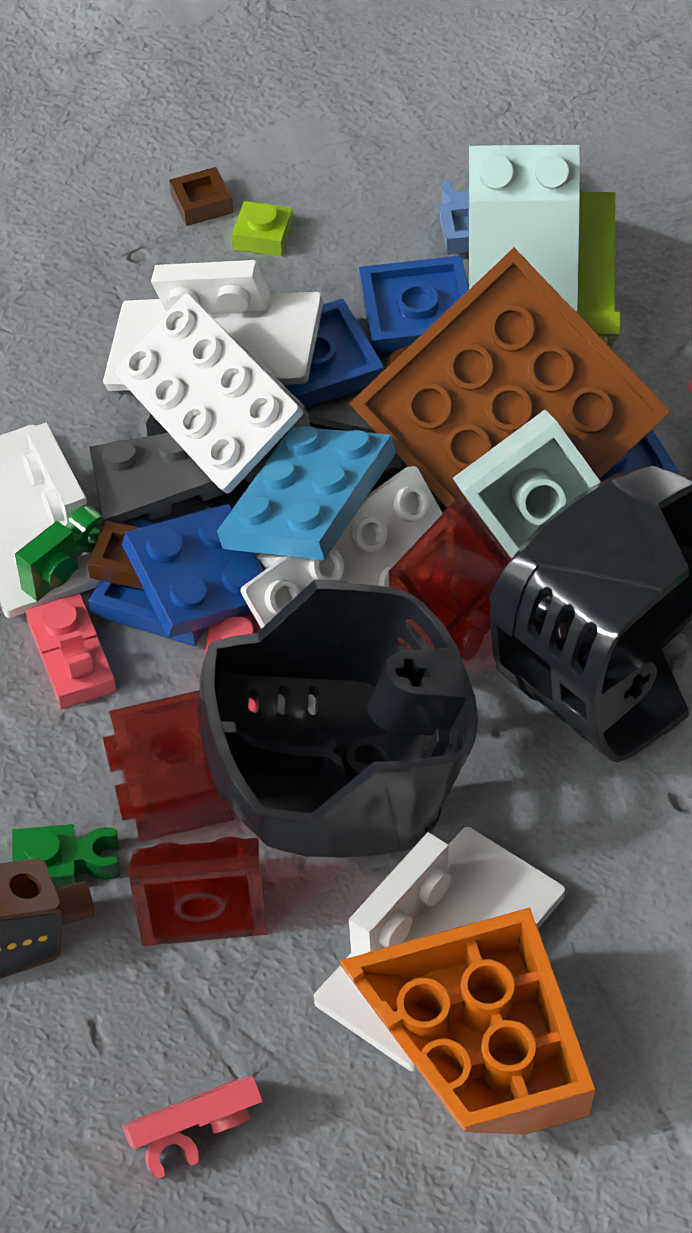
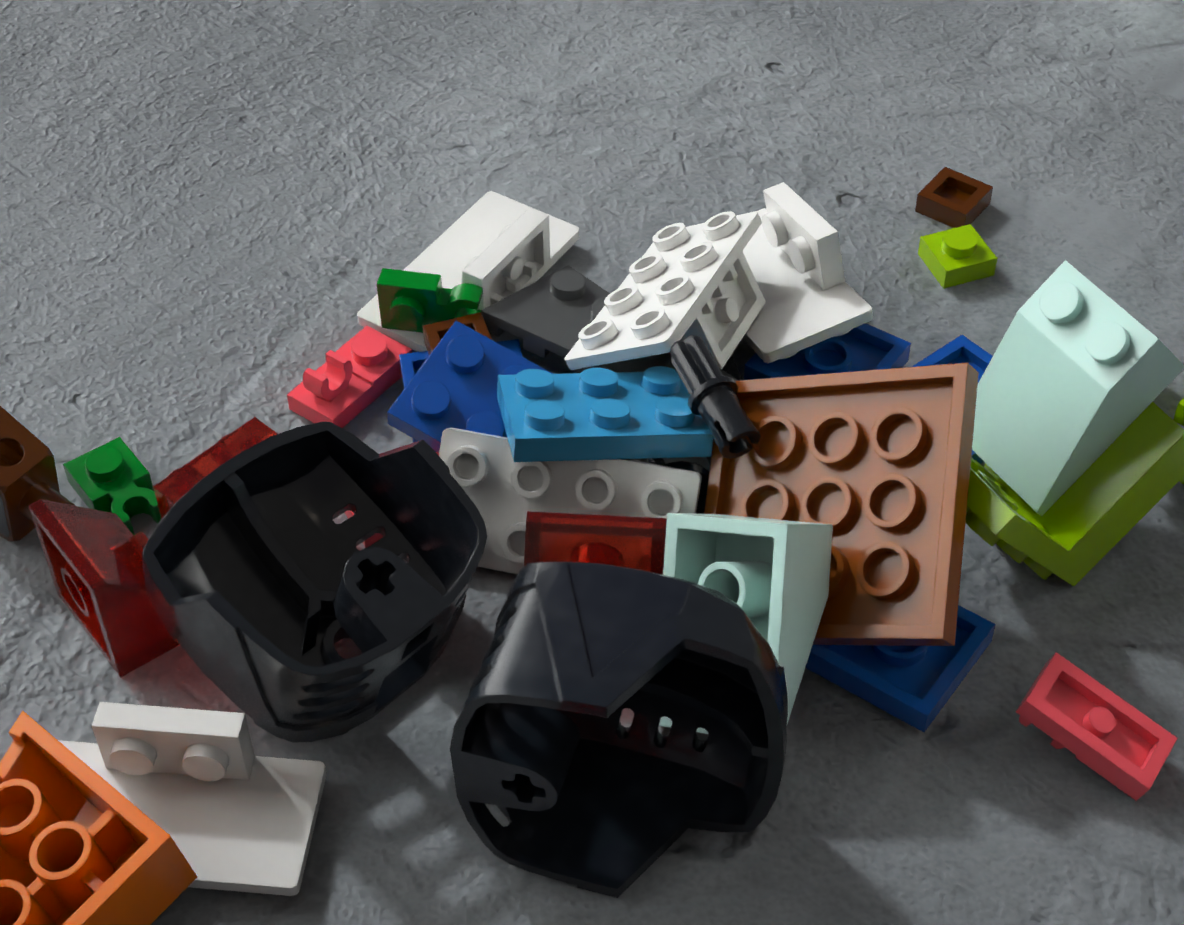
camera: 55 degrees right, 5 degrees down
(367, 411) = (713, 397): none -> black axle

